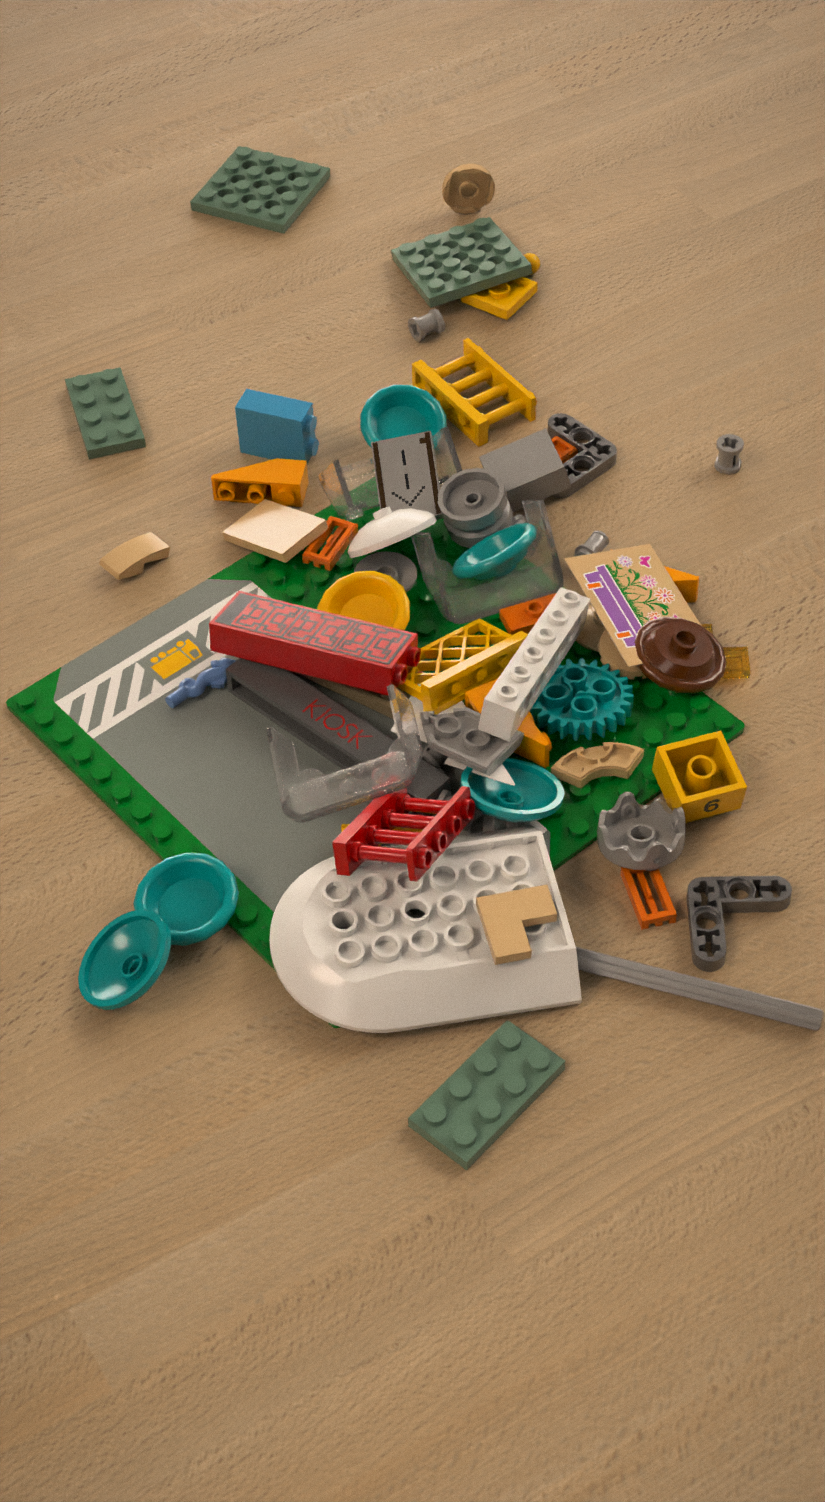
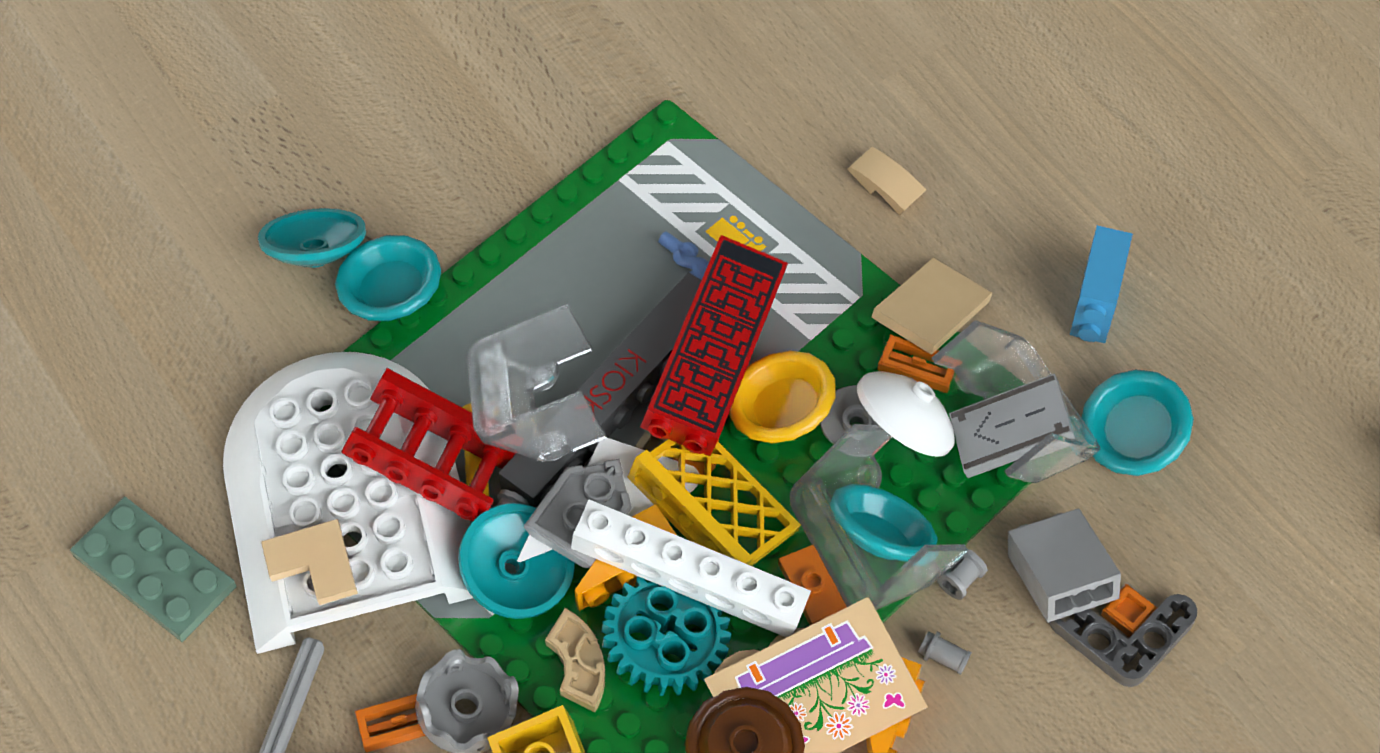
camera: 85 degrees right, 10 degrees up
(105, 413) = (1129, 122): sand green plate -> none
(275, 480) = (1019, 290): light orange slope -> none
(426, 325) = (1353, 442): light grey bush -> none
(462, 410) = (1214, 468): yellow fence -> none
(474, 506) = (969, 501): light grey wheel -> none

